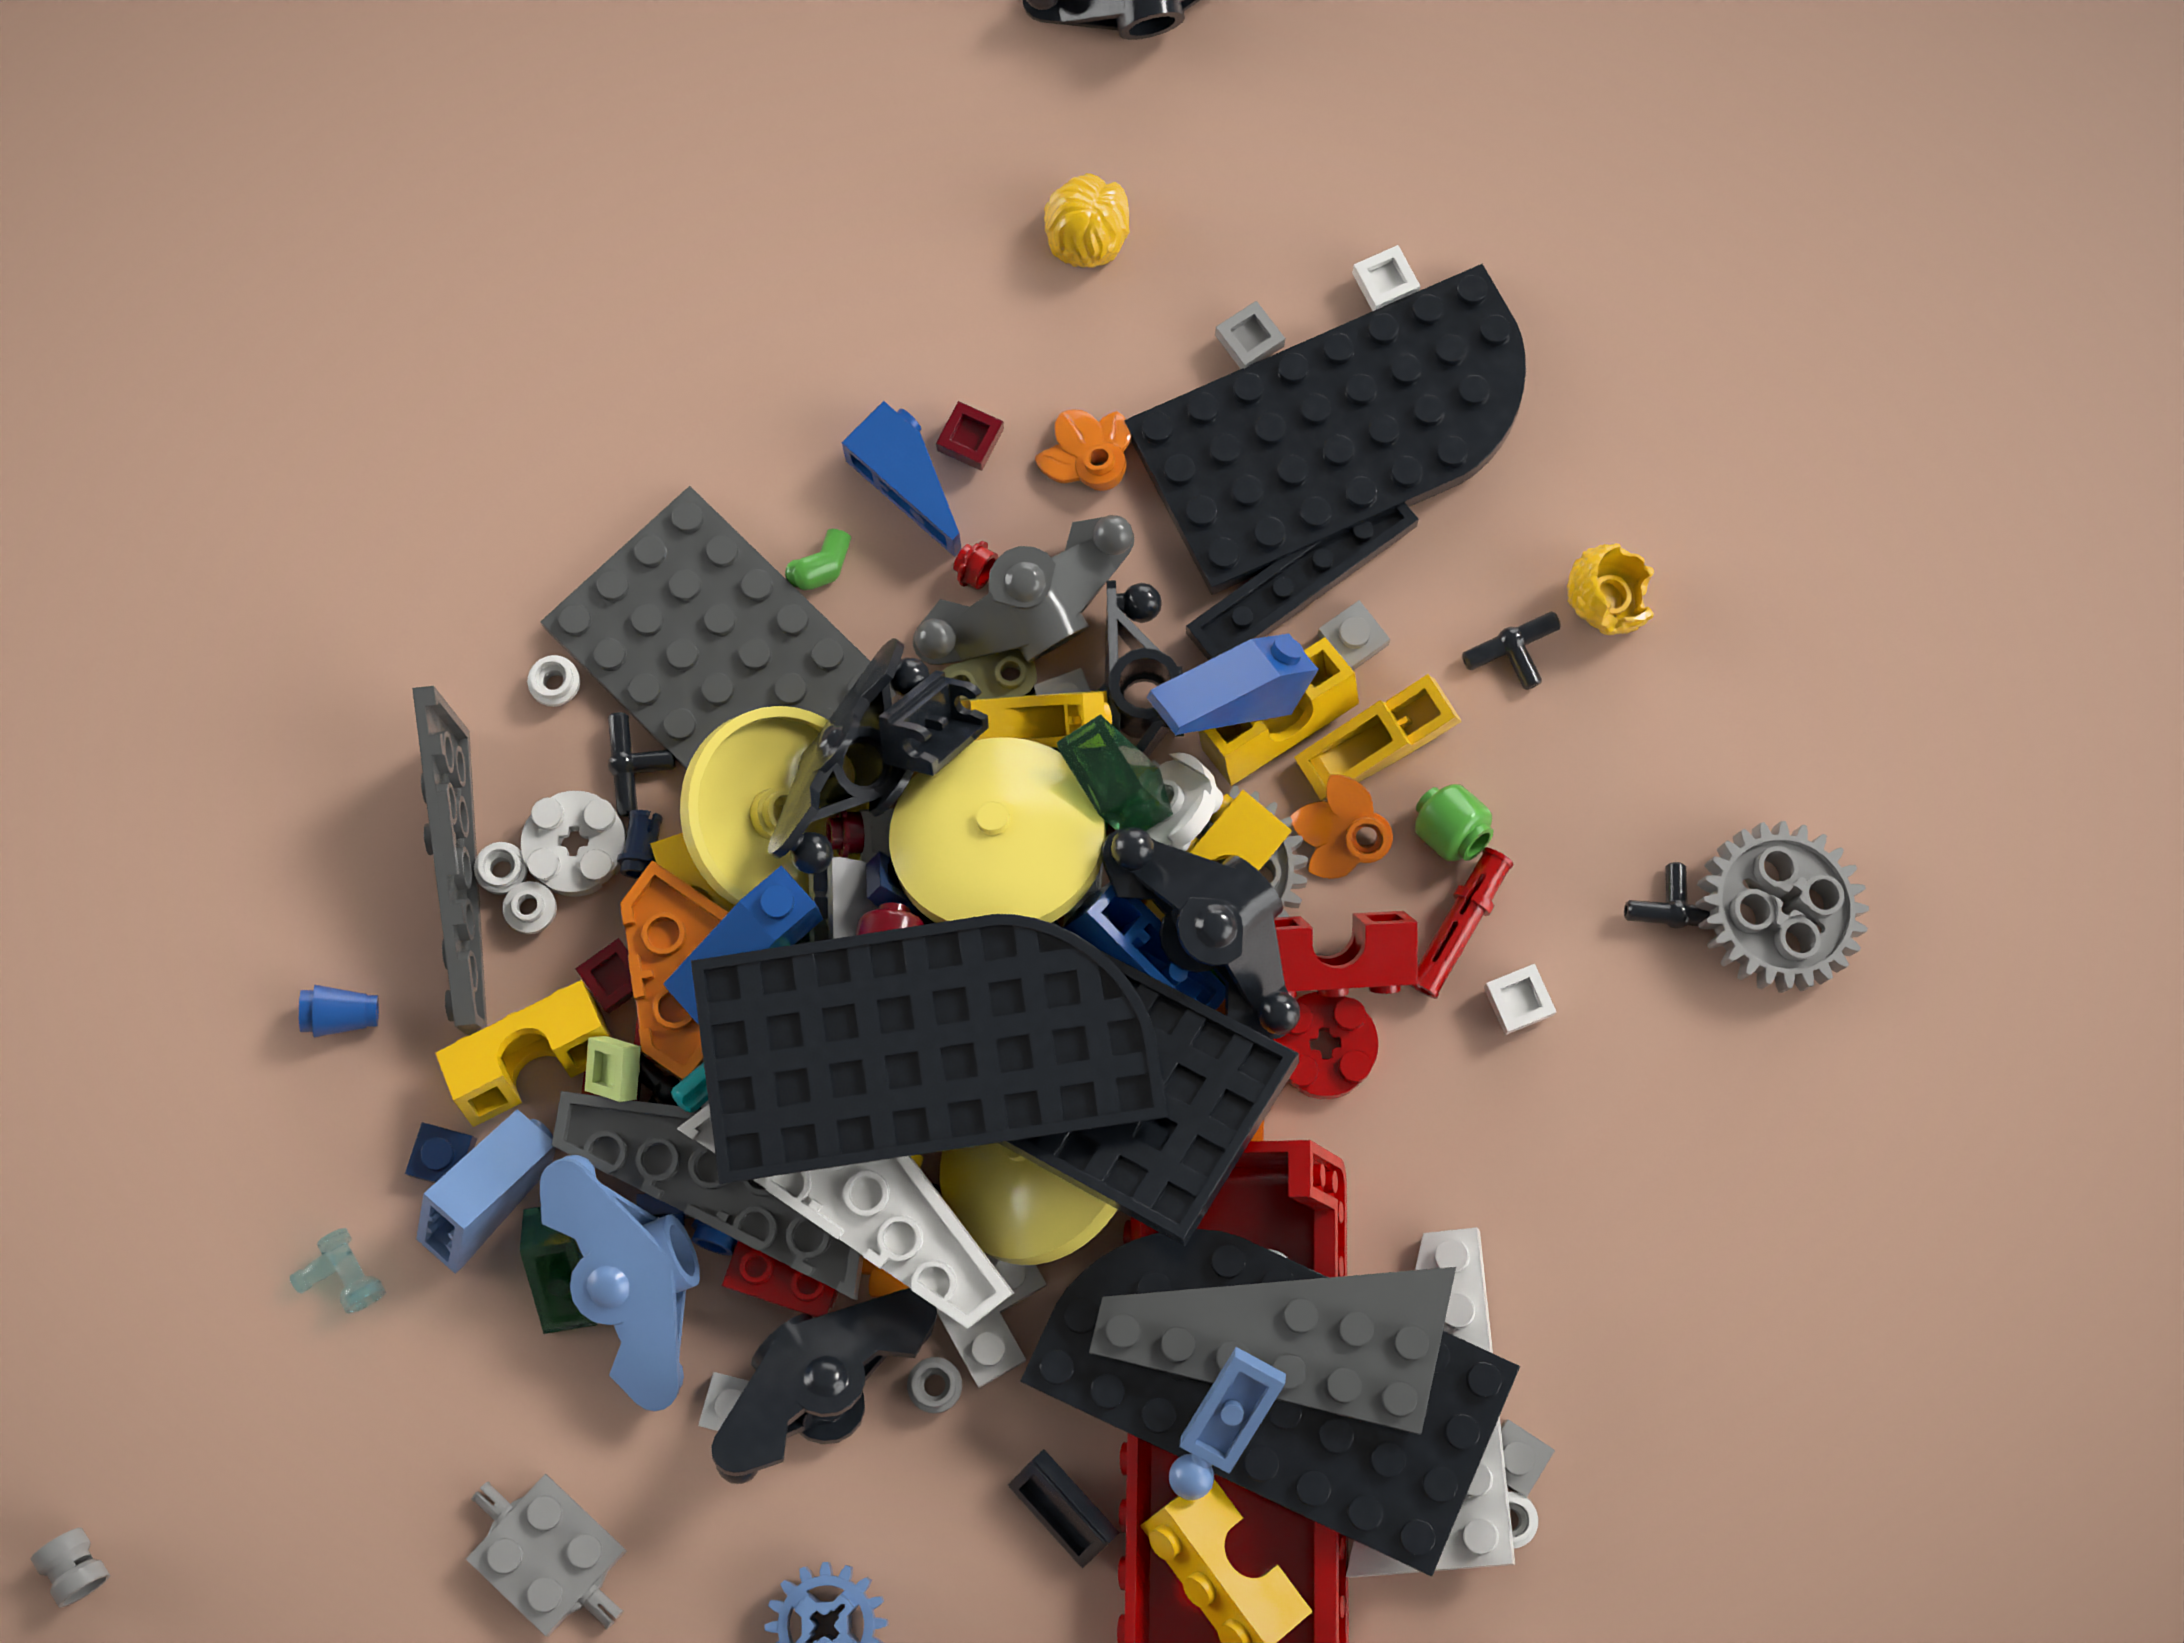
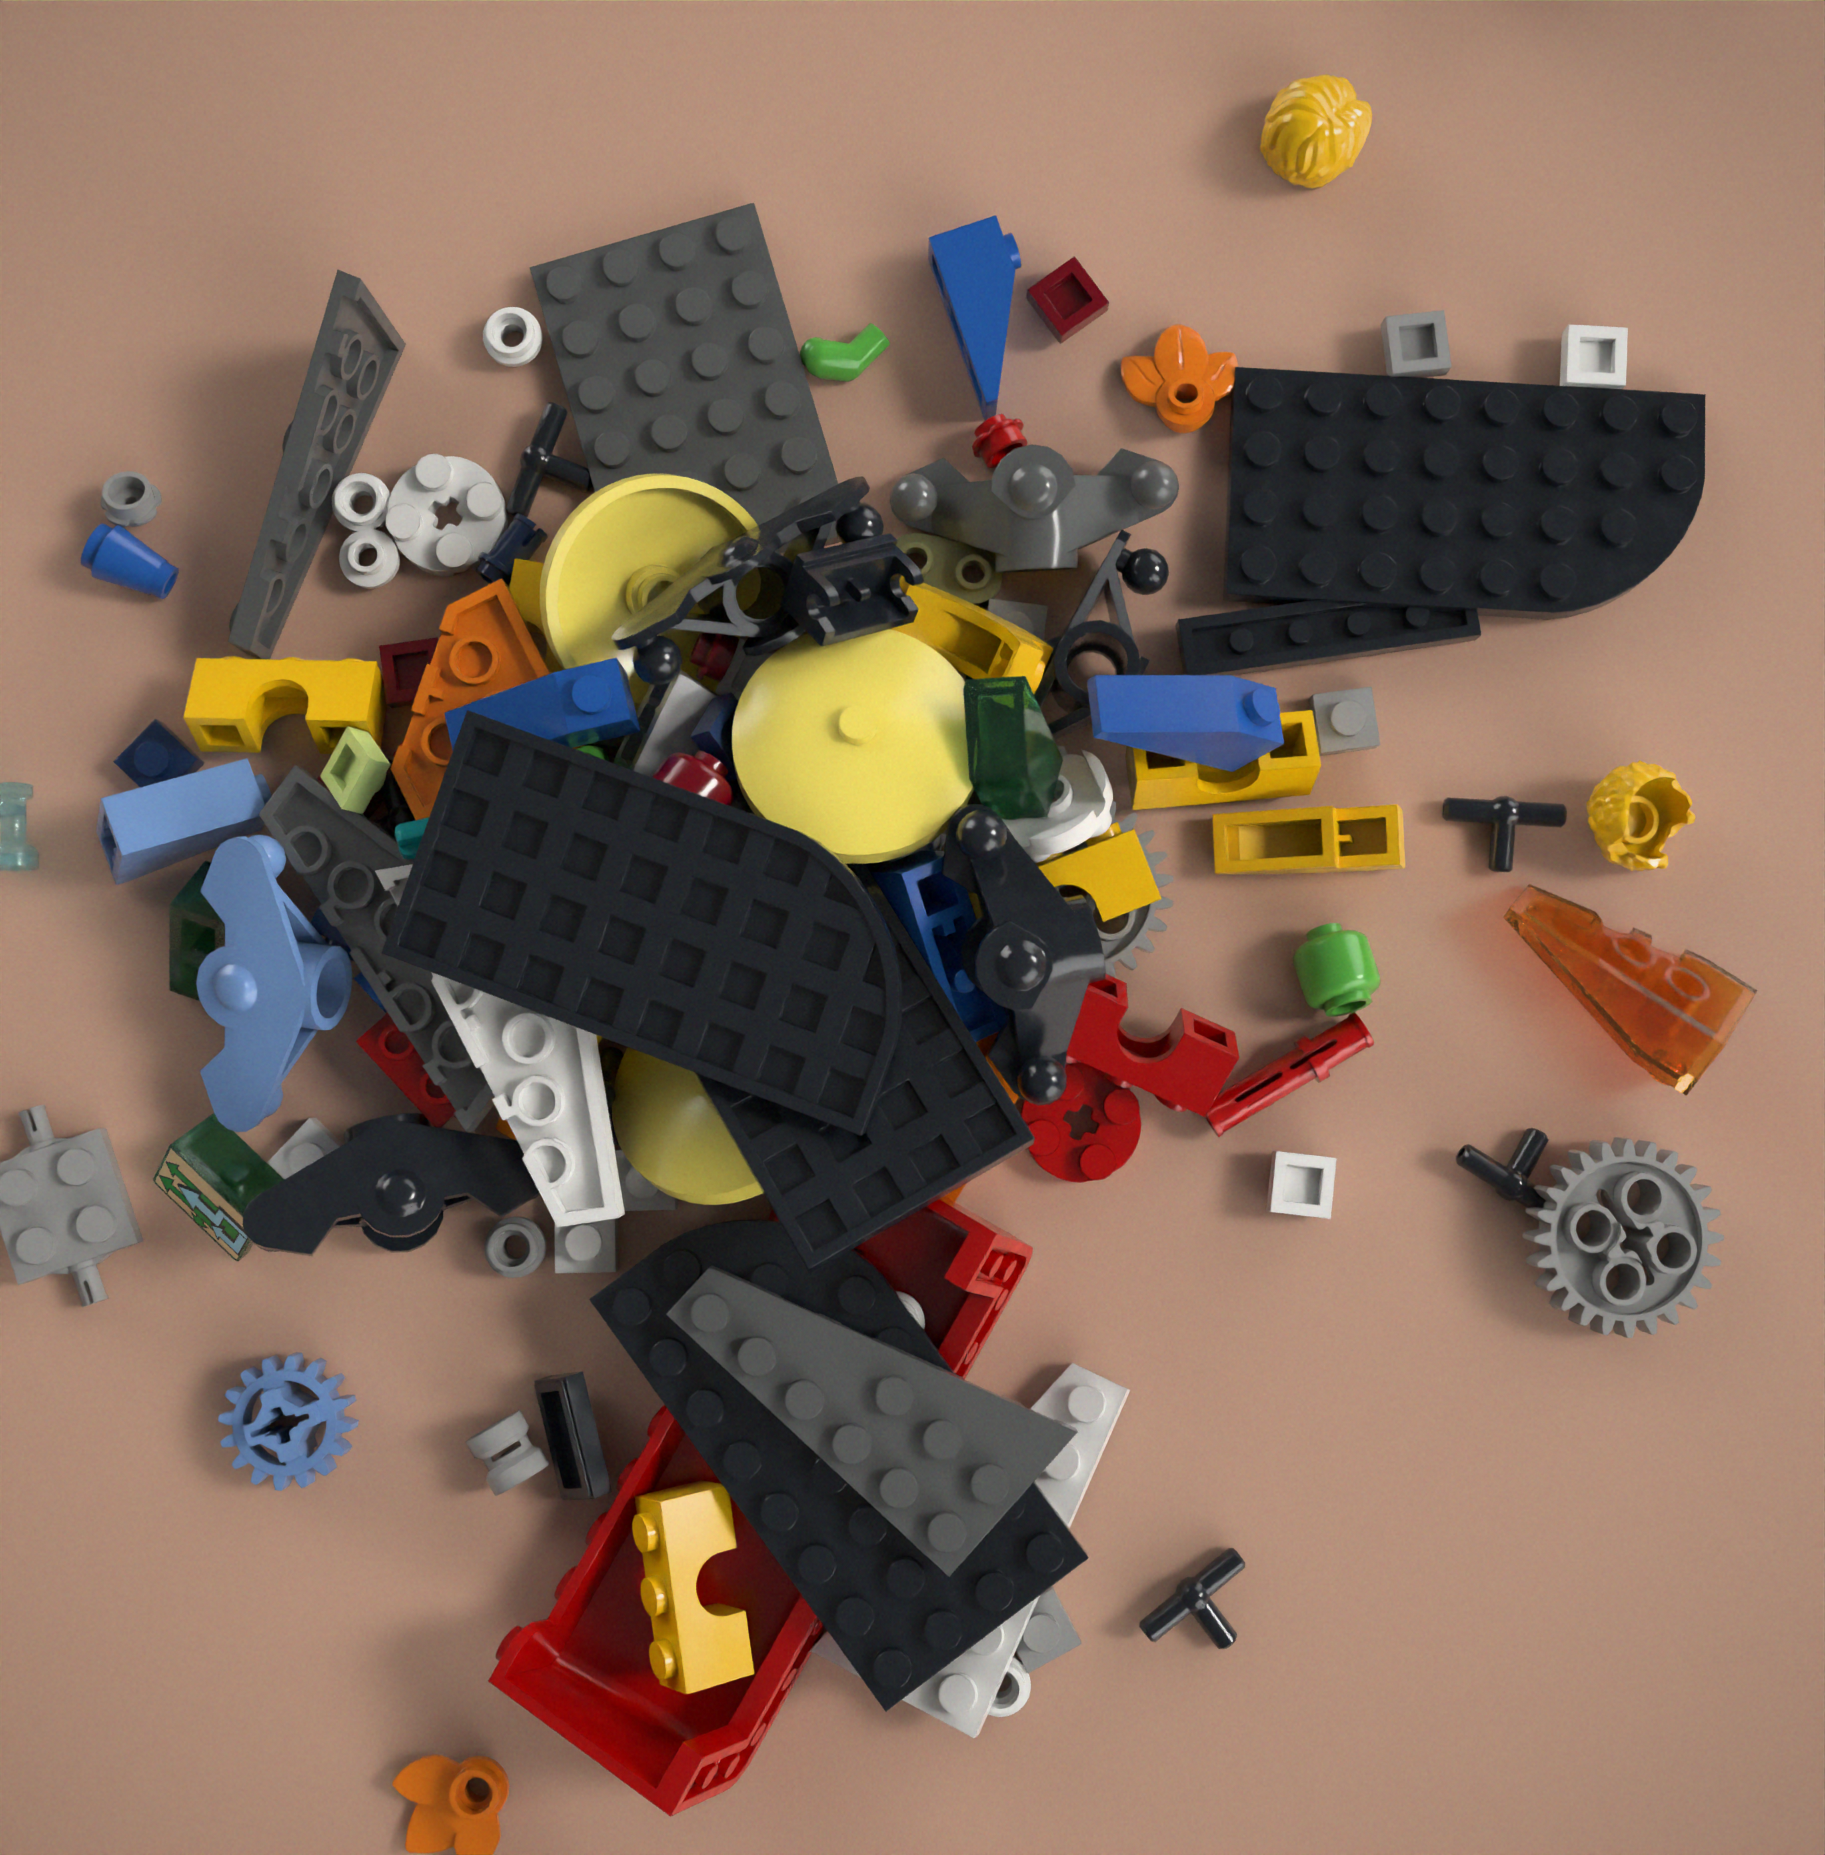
camera: 30 degrees right, 10 degrees up
(307, 953) = (130, 499): none -> light grey plate
(667, 1468) = (213, 1180): none -> panel
(1028, 1558) = (516, 1463): none -> light grey wheel
(1225, 1422) = (761, 1459): medium blue plate -> none
(1333, 828) = (1216, 905): orange plate -> none
(1620, 1365) = (1193, 1597): none -> black piece
(1704, 722) = (1656, 1006): none -> clear orange wedge

